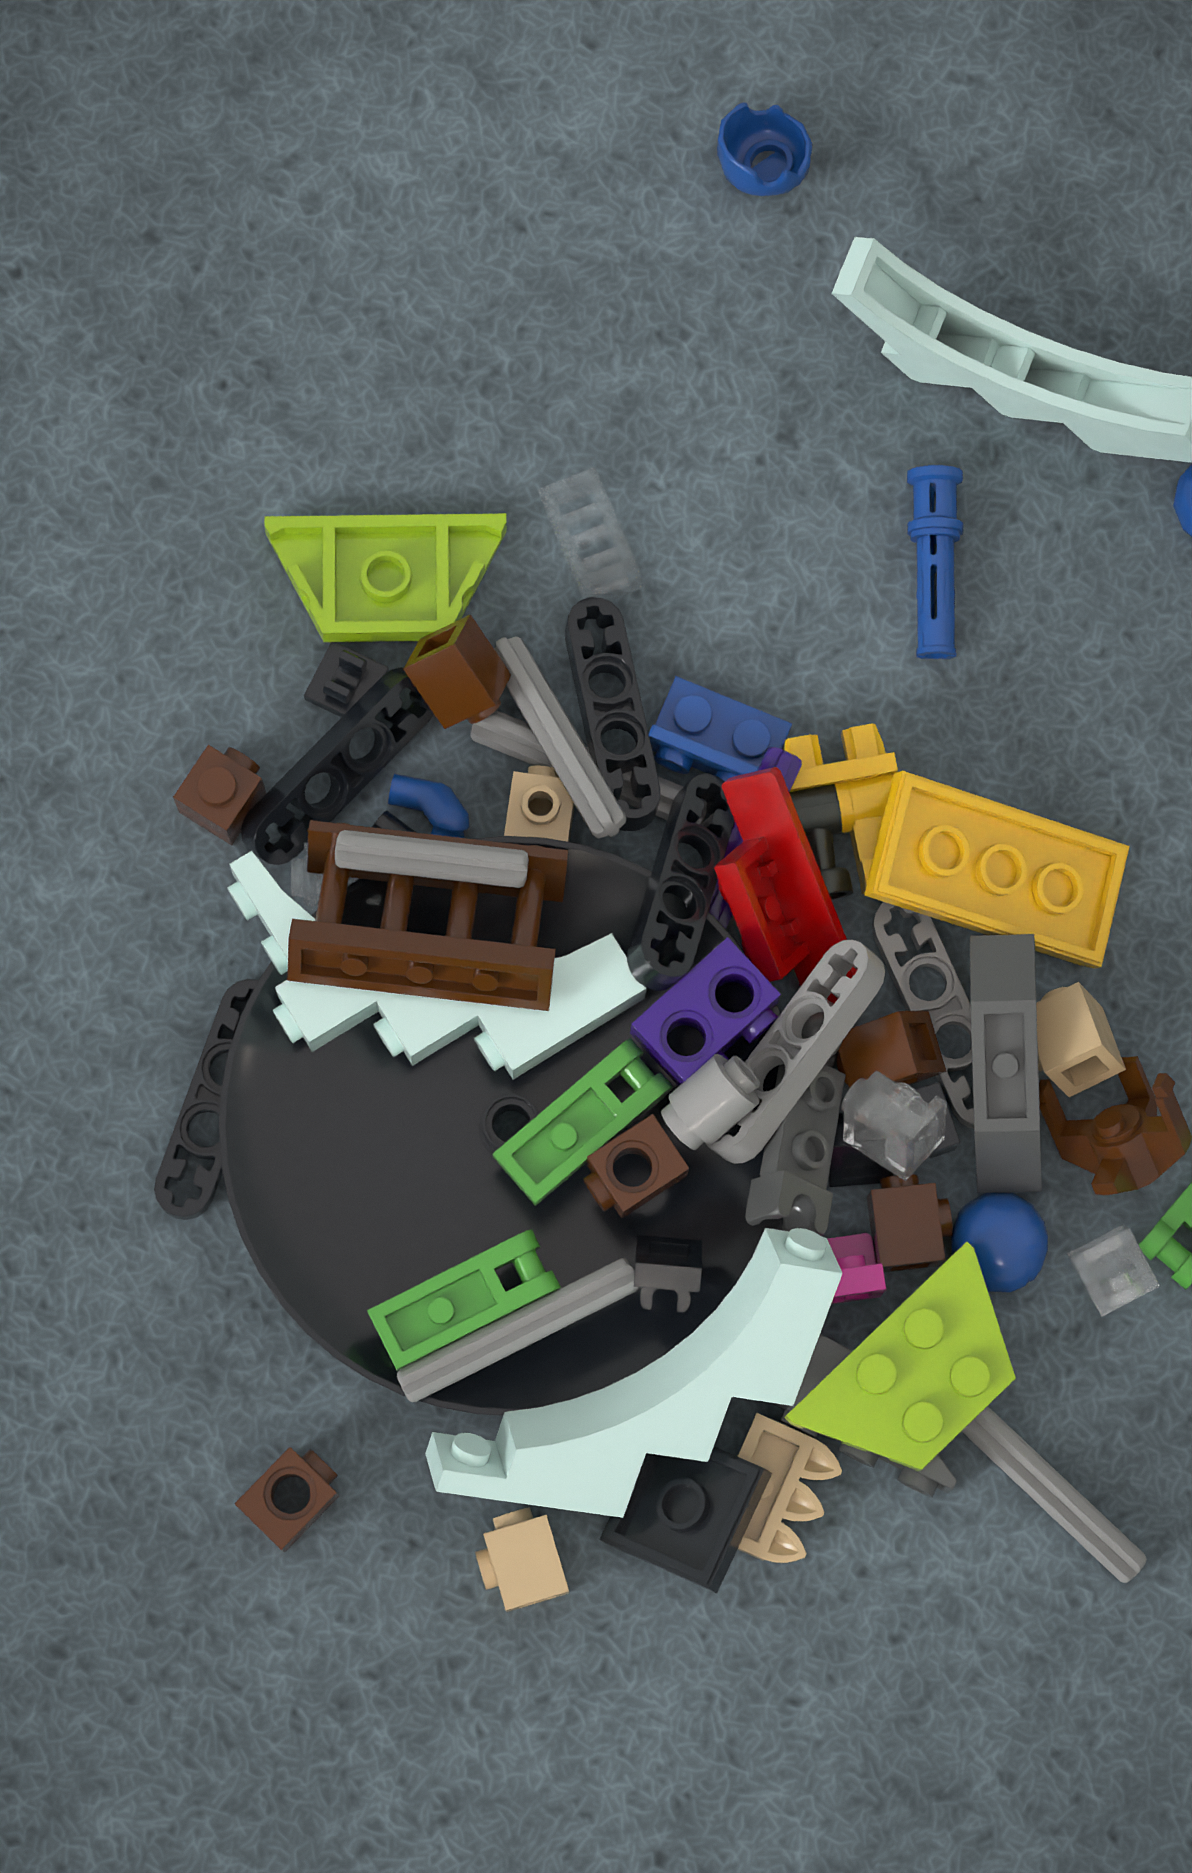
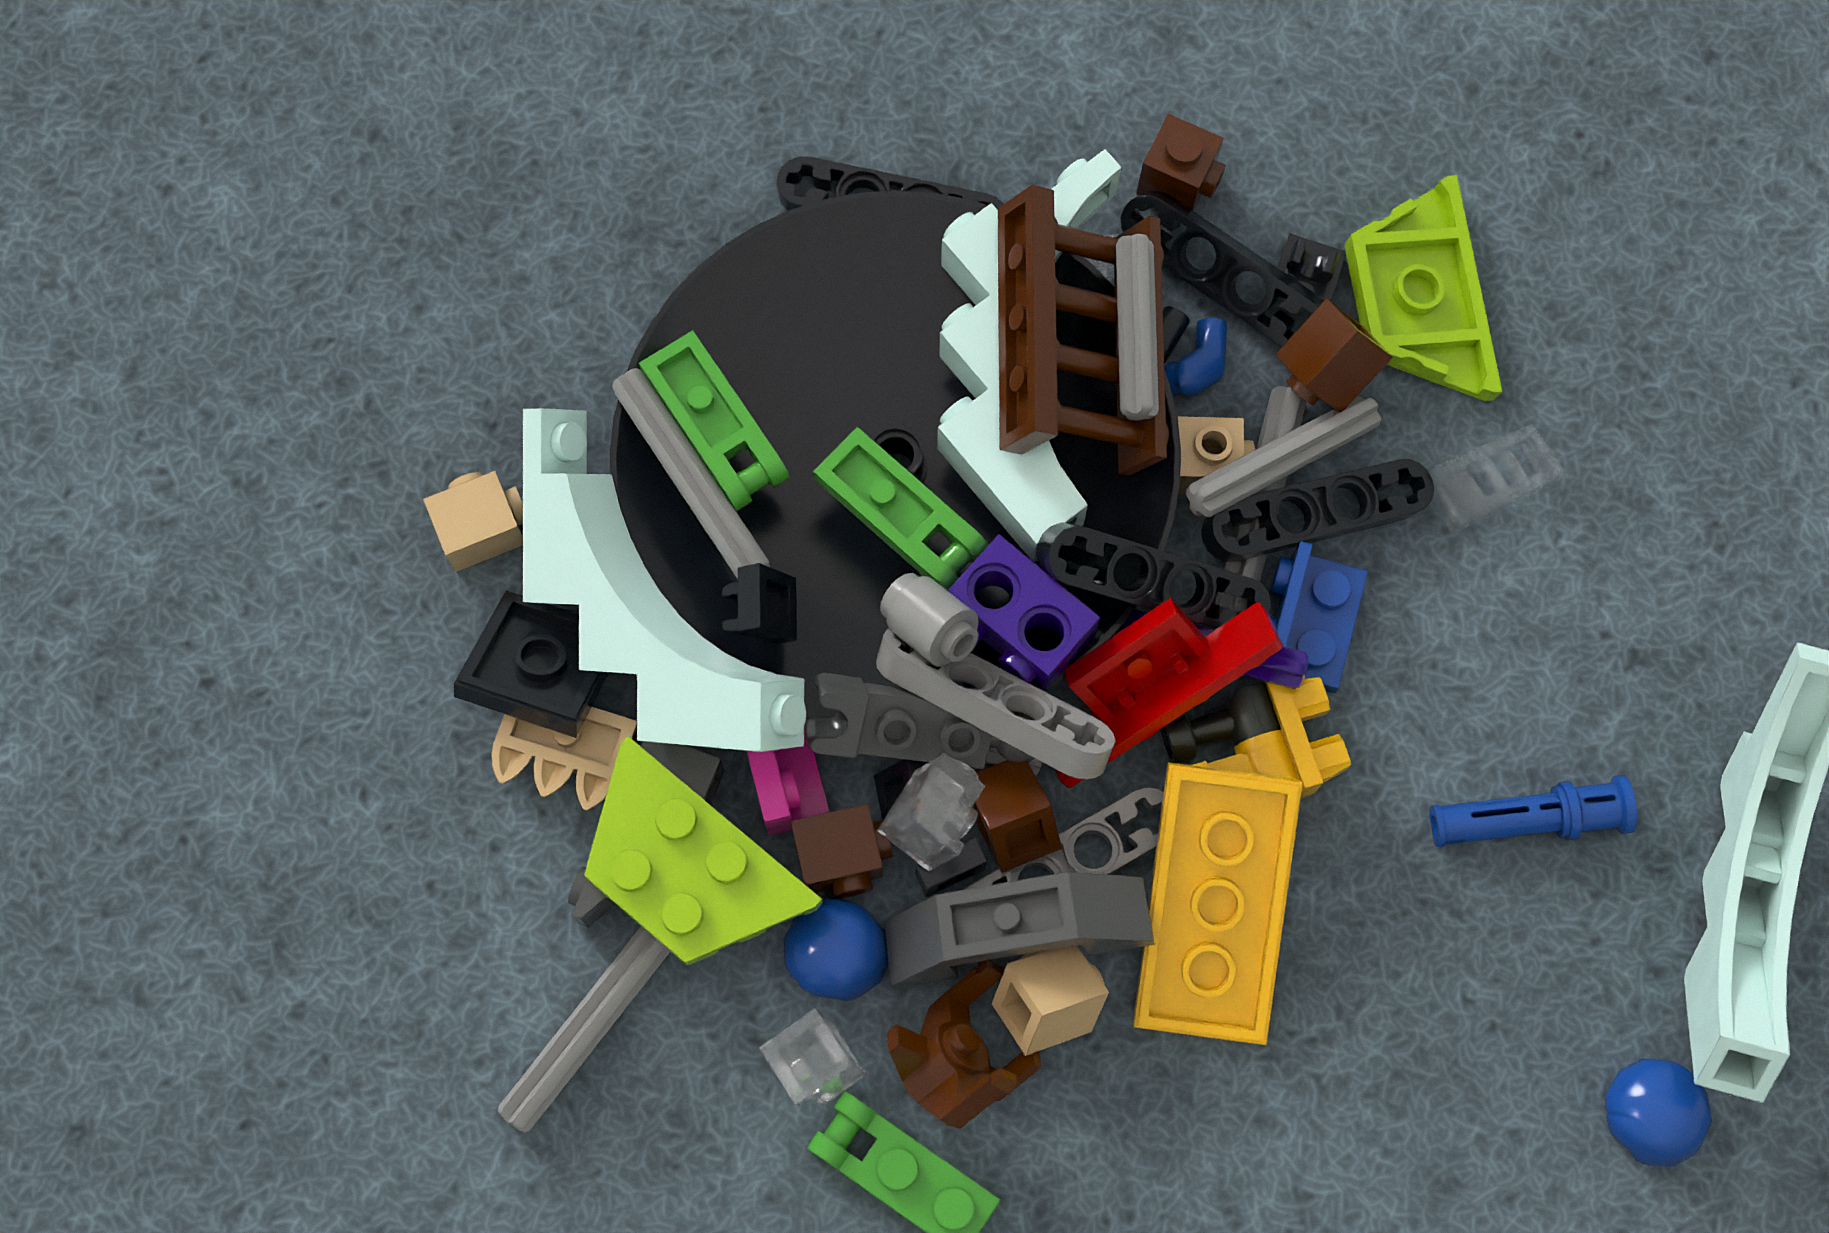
camera: 85 degrees right, 5 degrees down
(259, 1501) = (508, 284): reddish brown brick -> none
(655, 1147) = (862, 589): reddish brown brick -> none

